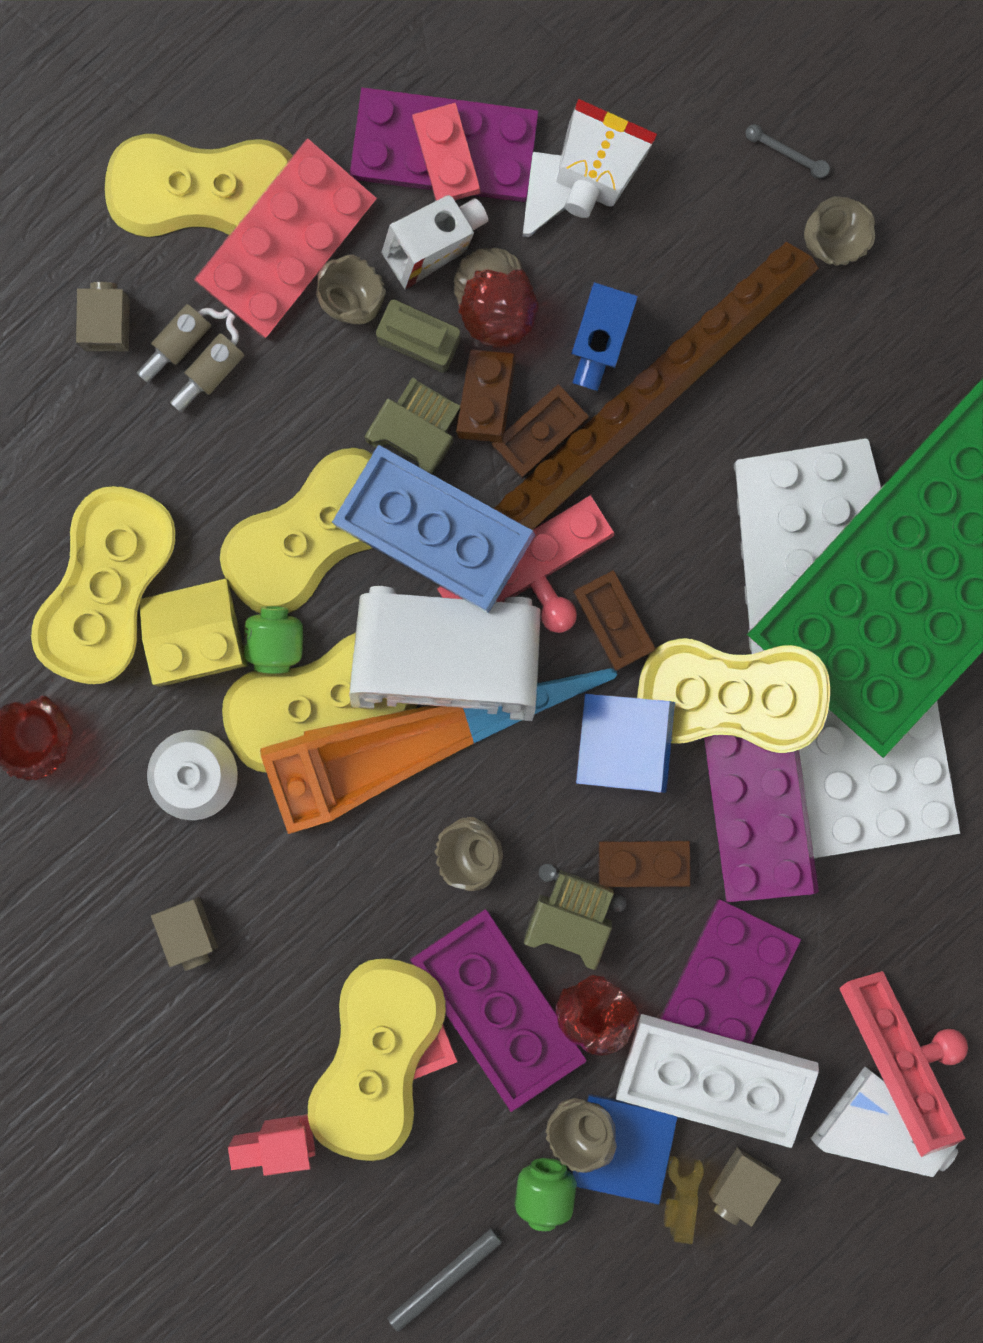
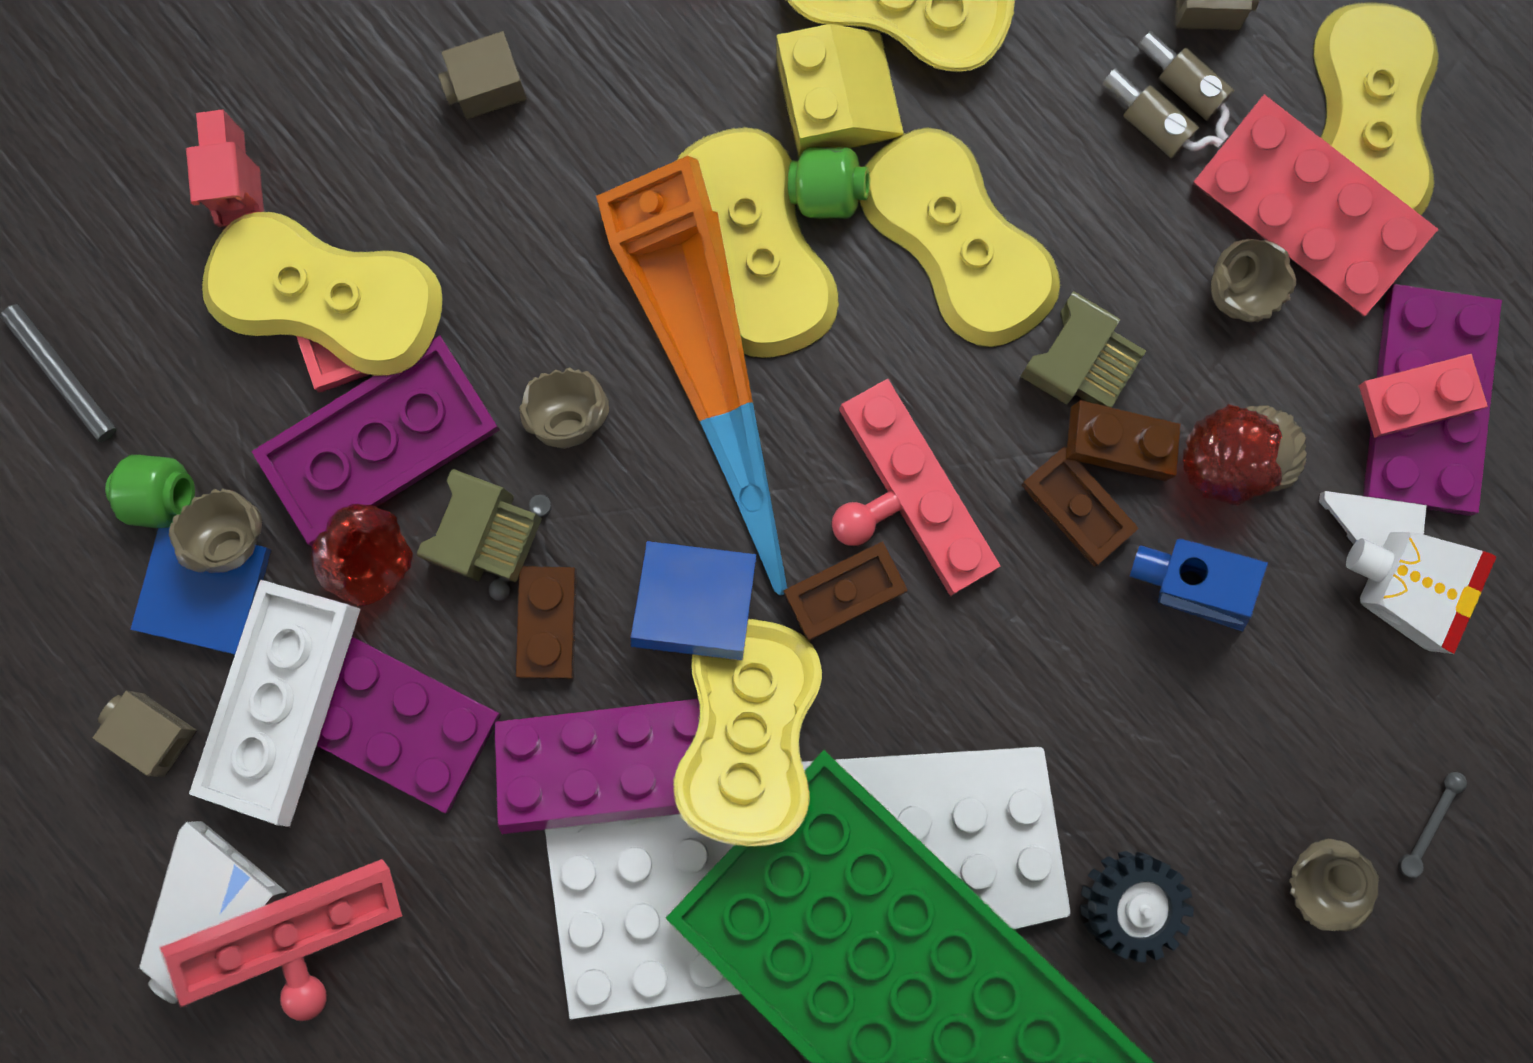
camera: 95 degrees right, 5 degrees down
(192, 775) = (669, 88): white cone -> none
(418, 335) = (1197, 360): olive piece -> none
(431, 238) = (1319, 376): white torso -> none
(433, 528) = (959, 368): medium blue plate -> none
(445, 653) = (807, 381): white windscreen -> none
(658, 386) = (1115, 629): reddish brown plate -> none
(681, 1212) = (120, 655): clear yellow plate -> none
(860, 386) = (1136, 906): none -> black wheel

